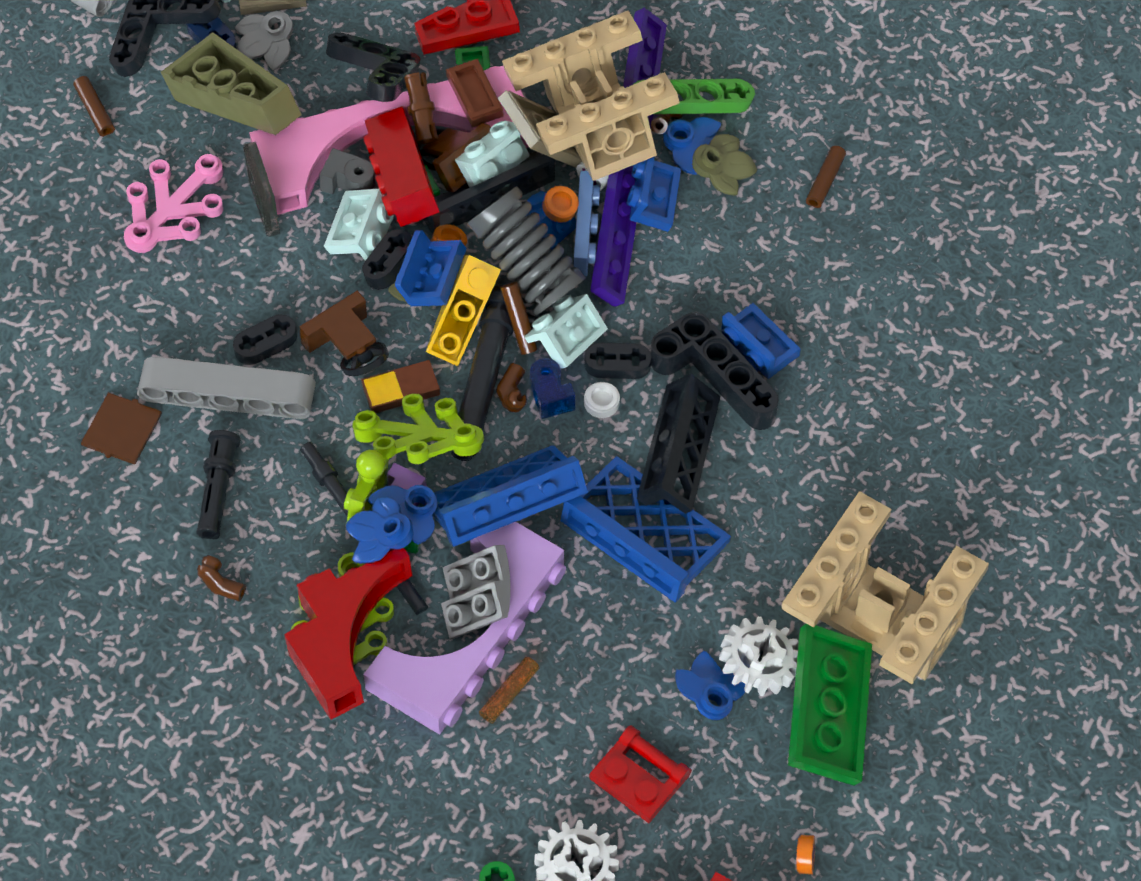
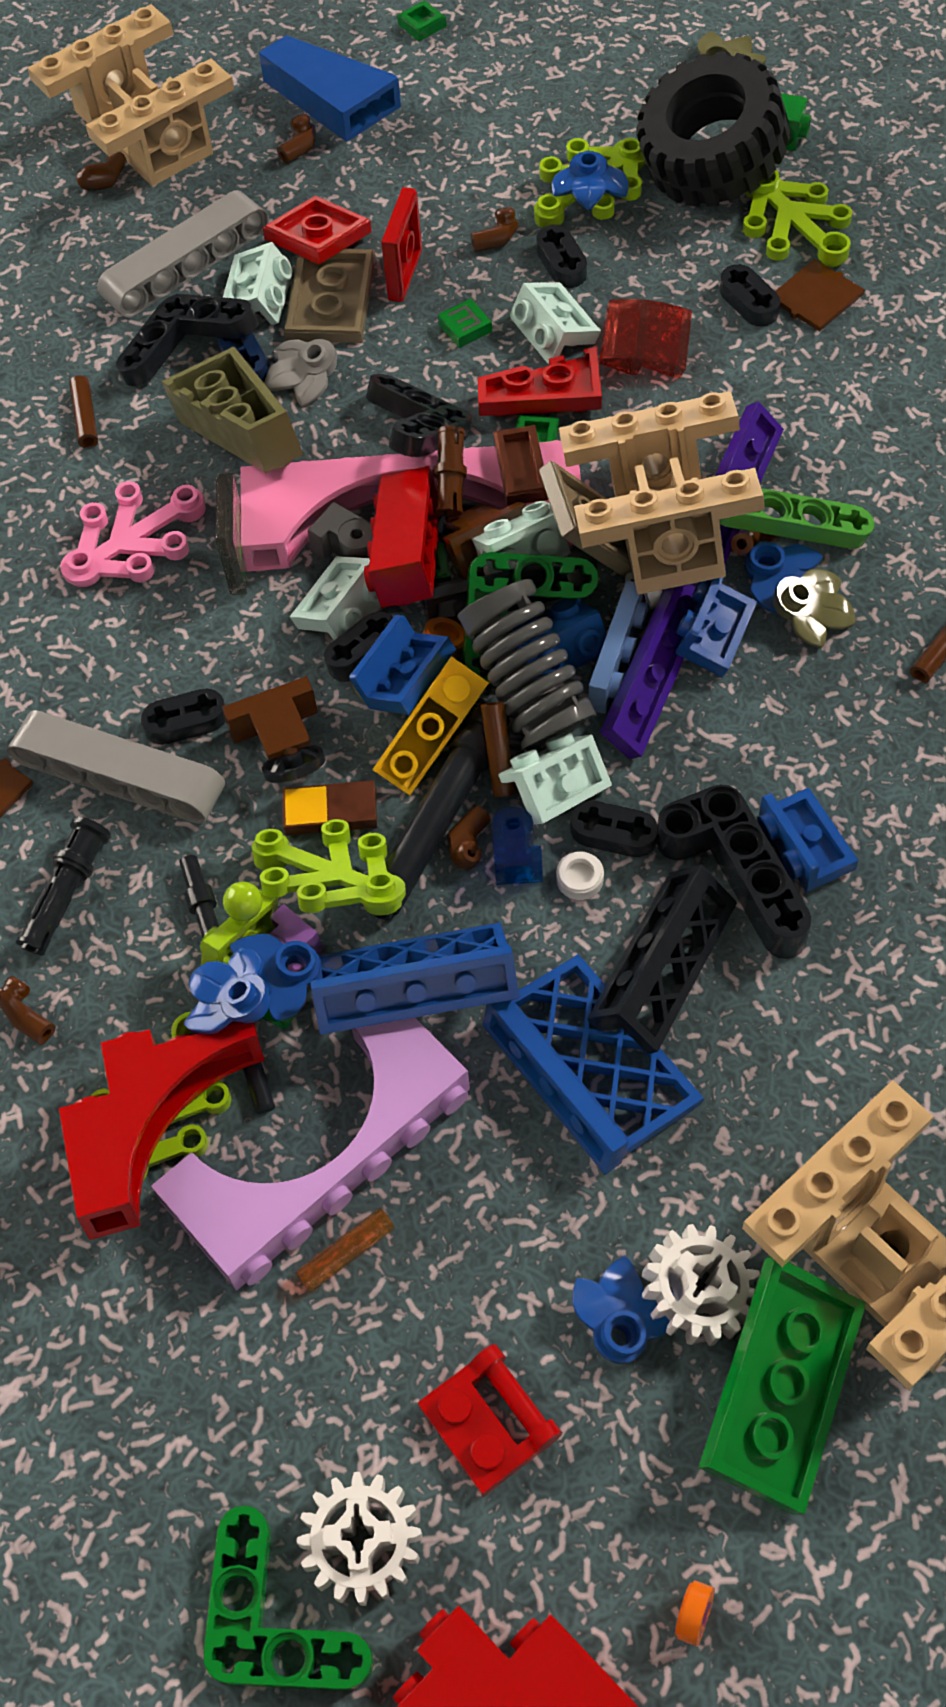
camera: 20 degrees right, 0 degrees up
(472, 202) = (477, 589): none -> green beam
(477, 591) = (339, 1104): light grey slope -> none
(560, 204) = (589, 616): orange tile -> none

